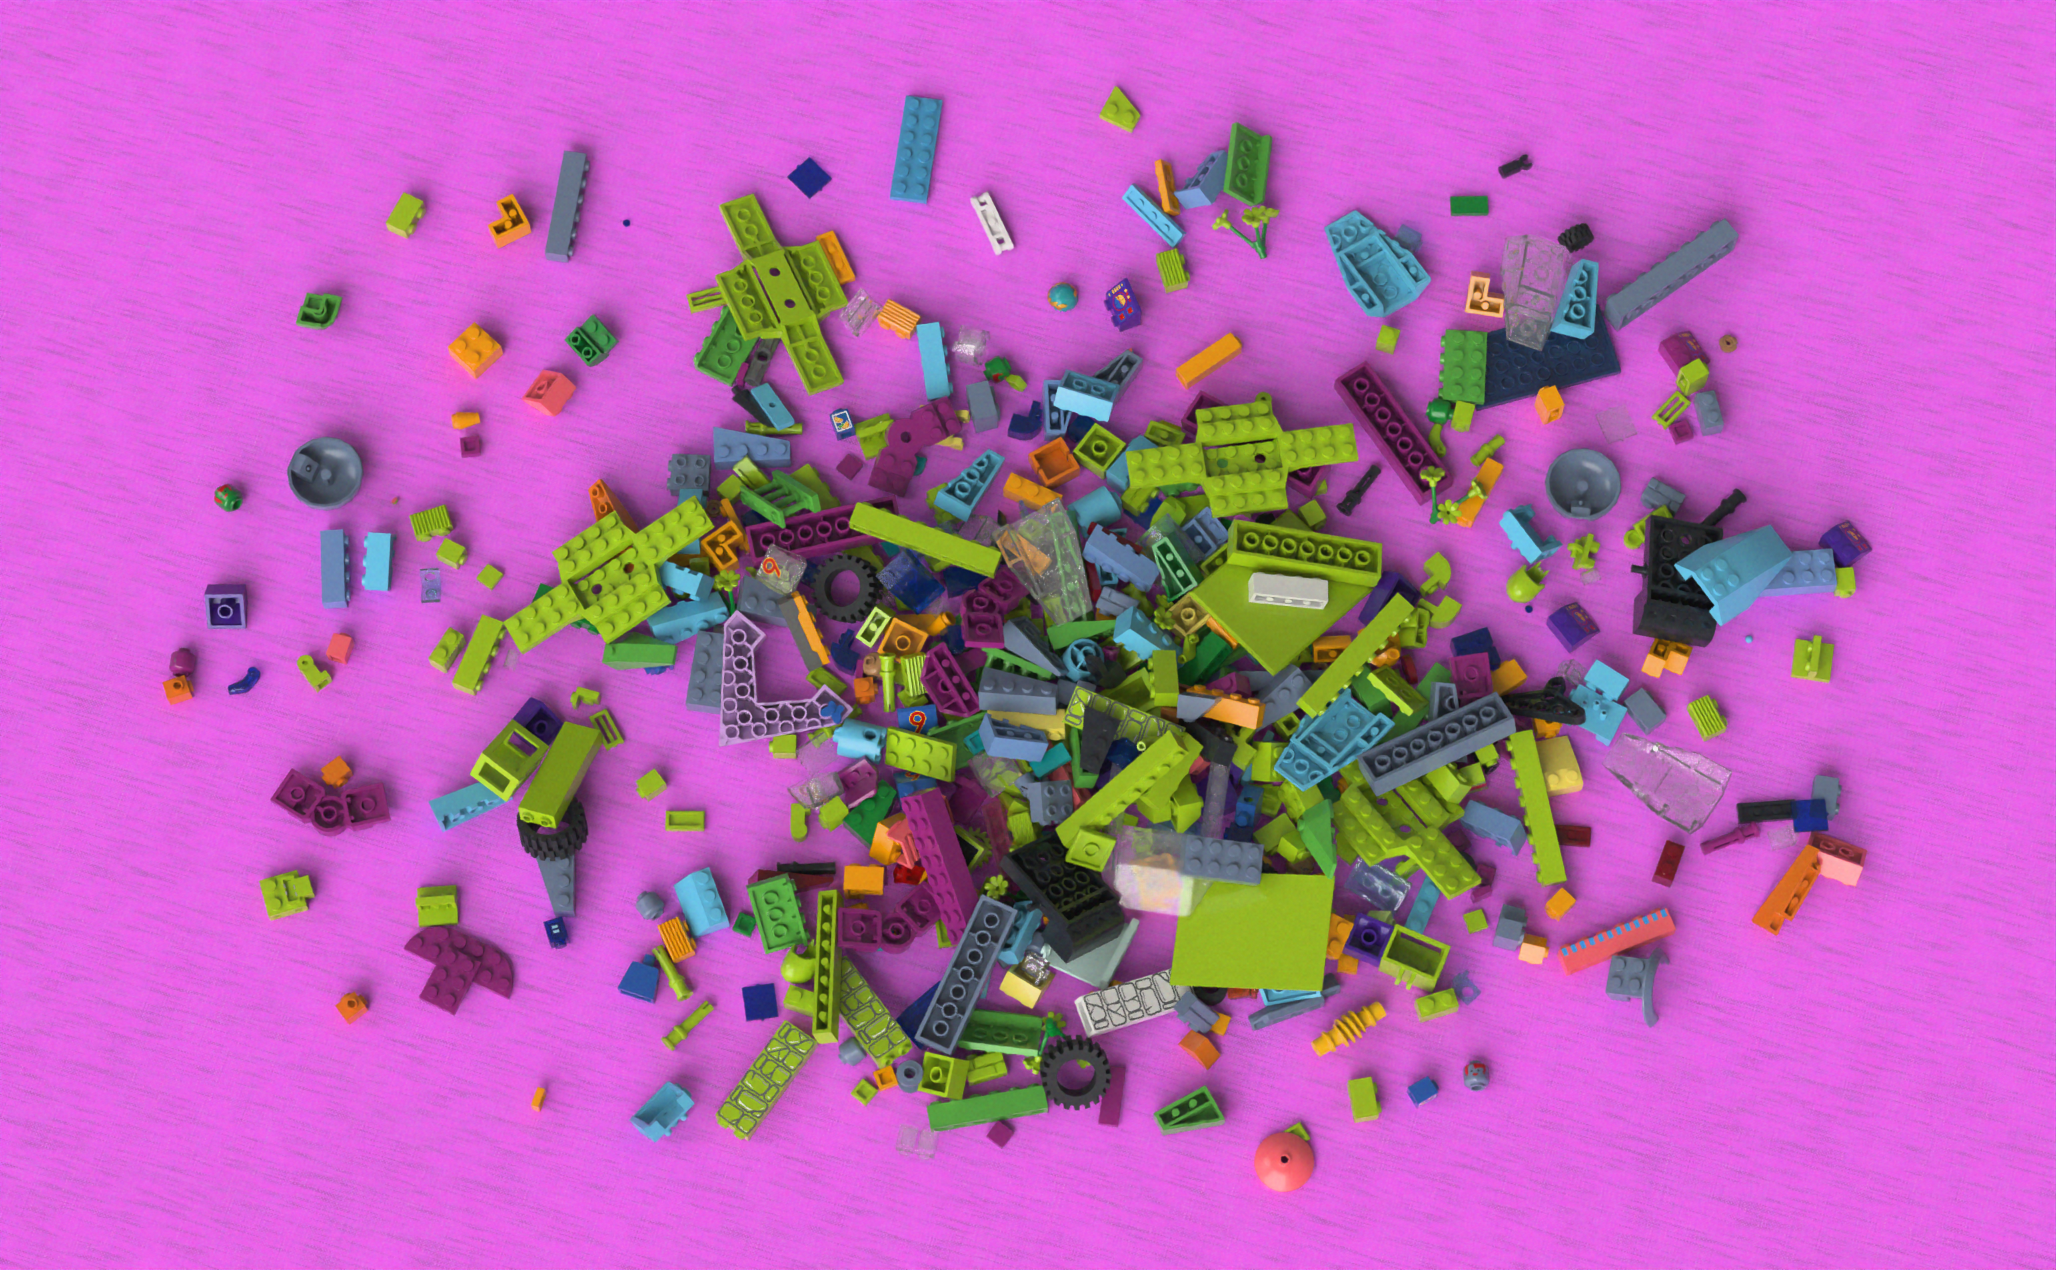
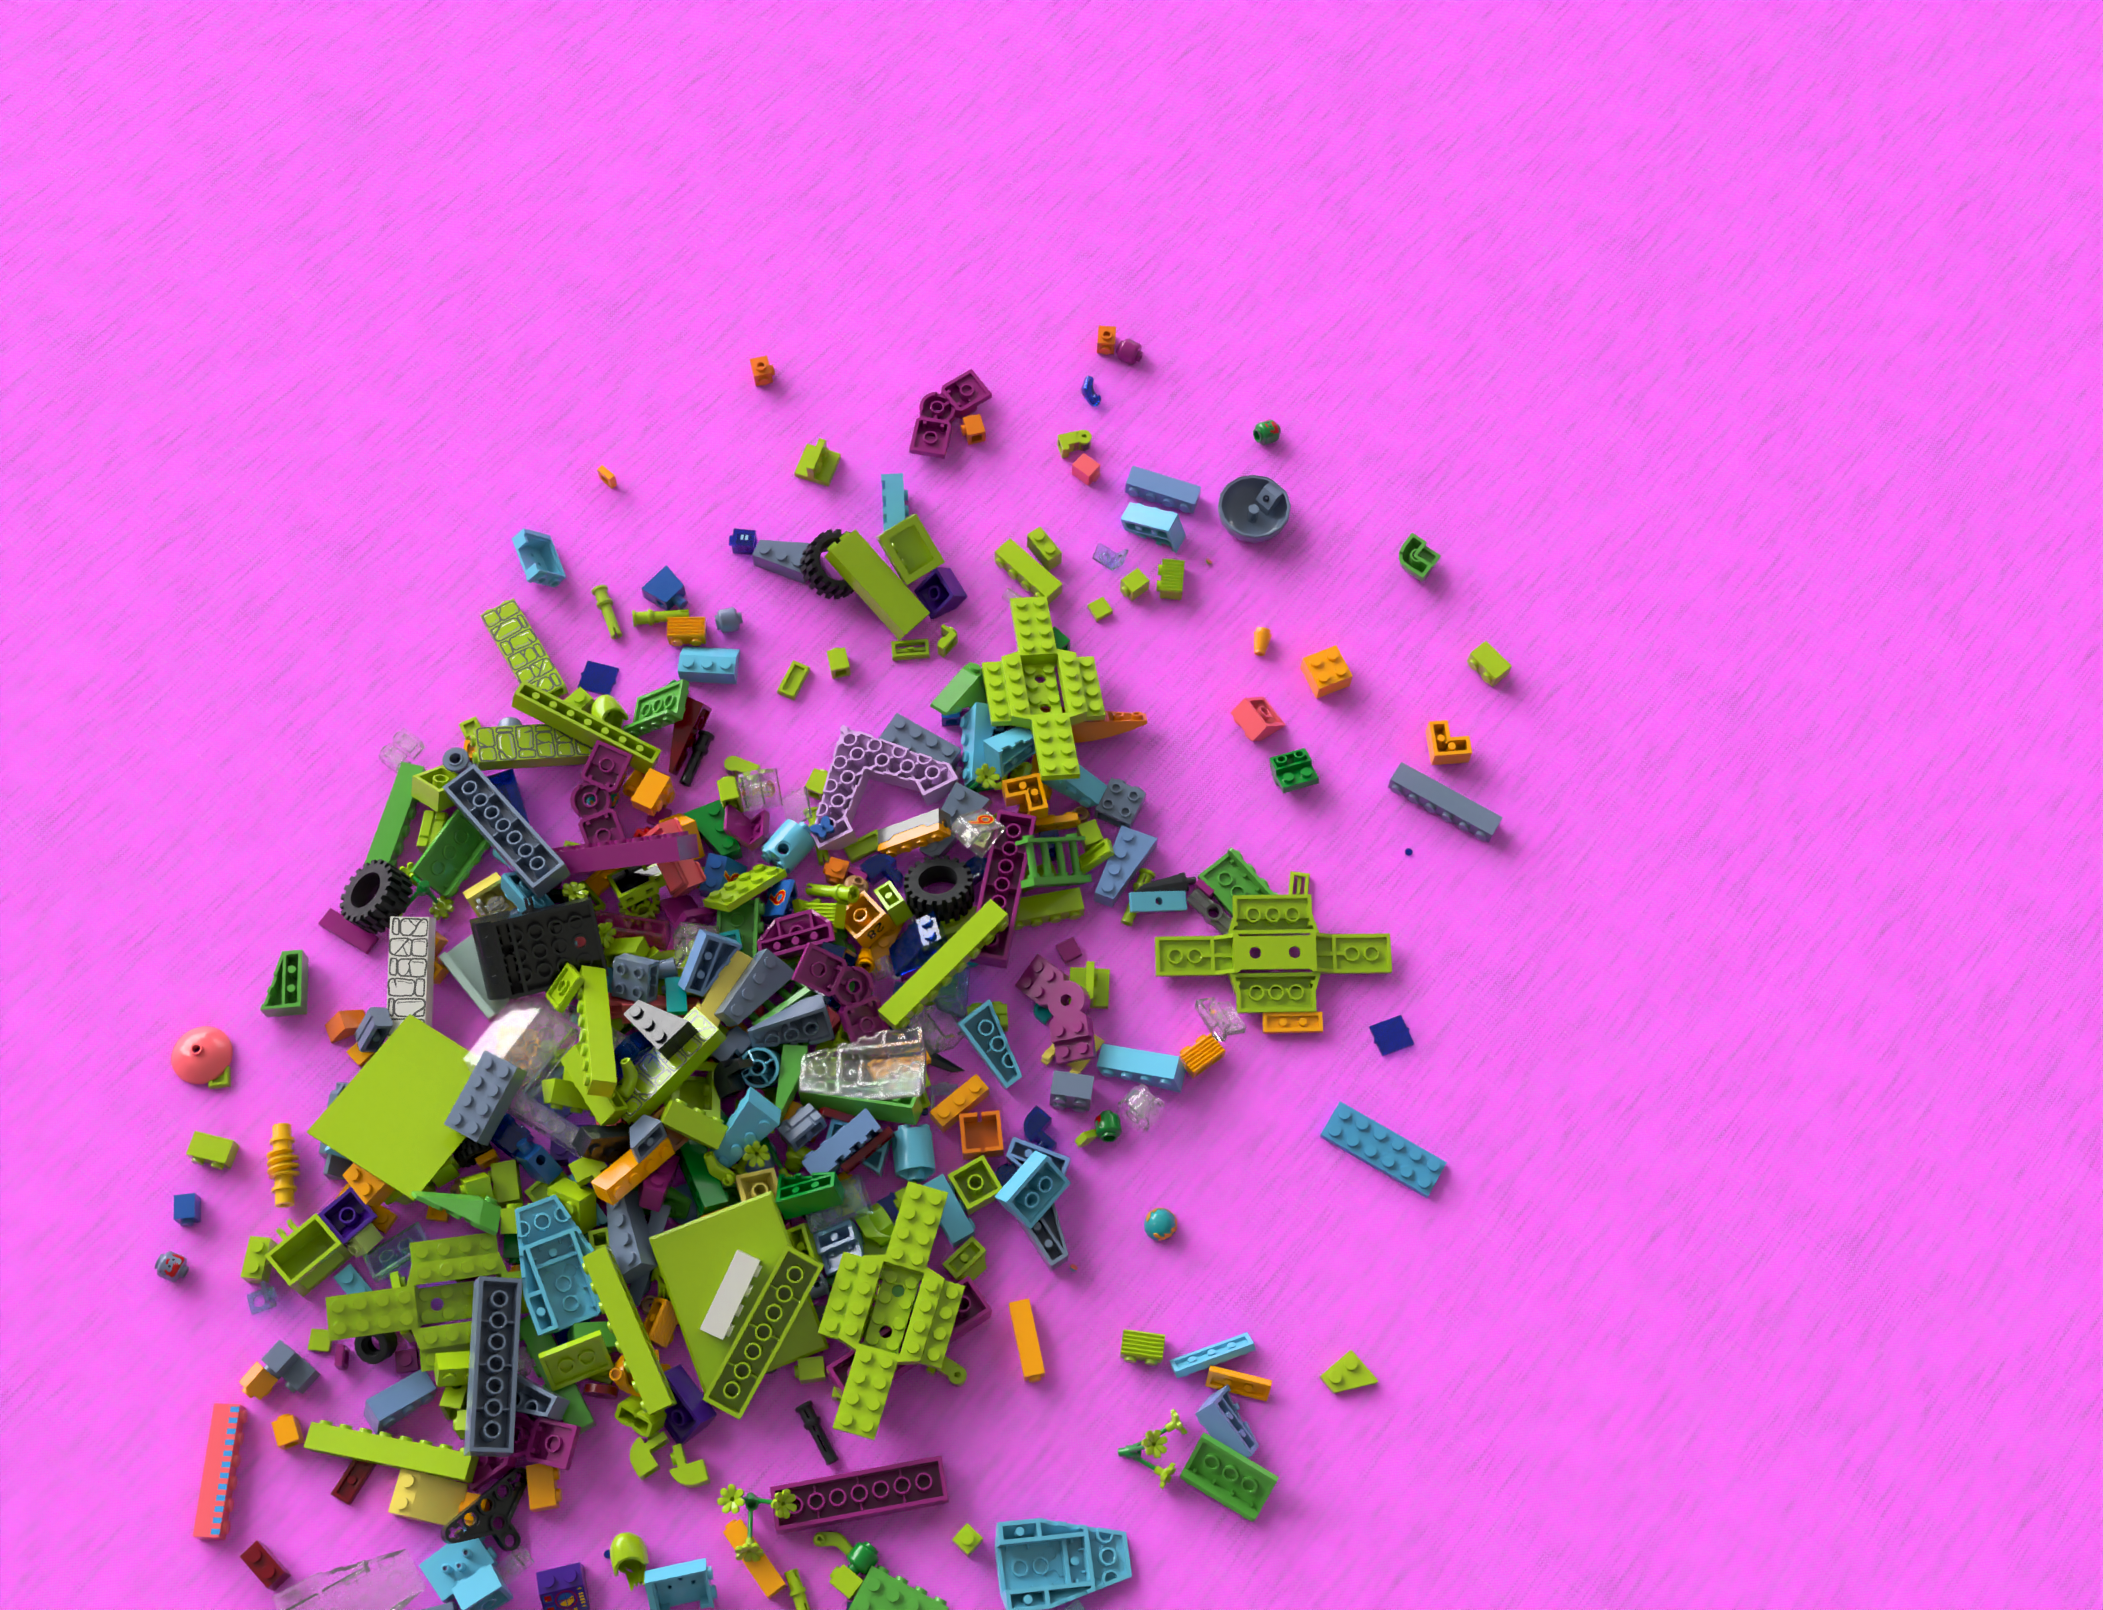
camera: 110 degrees right, 5 degrees down
(226, 606) = (1167, 398): dark purple slope -> none
(286, 894) = (885, 358): lime piece -> none
(458, 965) = (755, 461): magenta plate -> none
(470, 446) = (1232, 636): magenta plate -> none
(842, 424) = (1114, 958): blue brick -> none
(992, 223) = (1270, 1188): white plate -> none
(1000, 1134) = (368, 822): magenta tile -> none
(1123, 306) = (1121, 1277): dark purple slope -> none
(1474, 643) = (587, 1469): clear blue piece -> none
(1486, 873) = (361, 1372): magenta tile -> none
(1635, 979) = (165, 1467): sand blue piece -> none

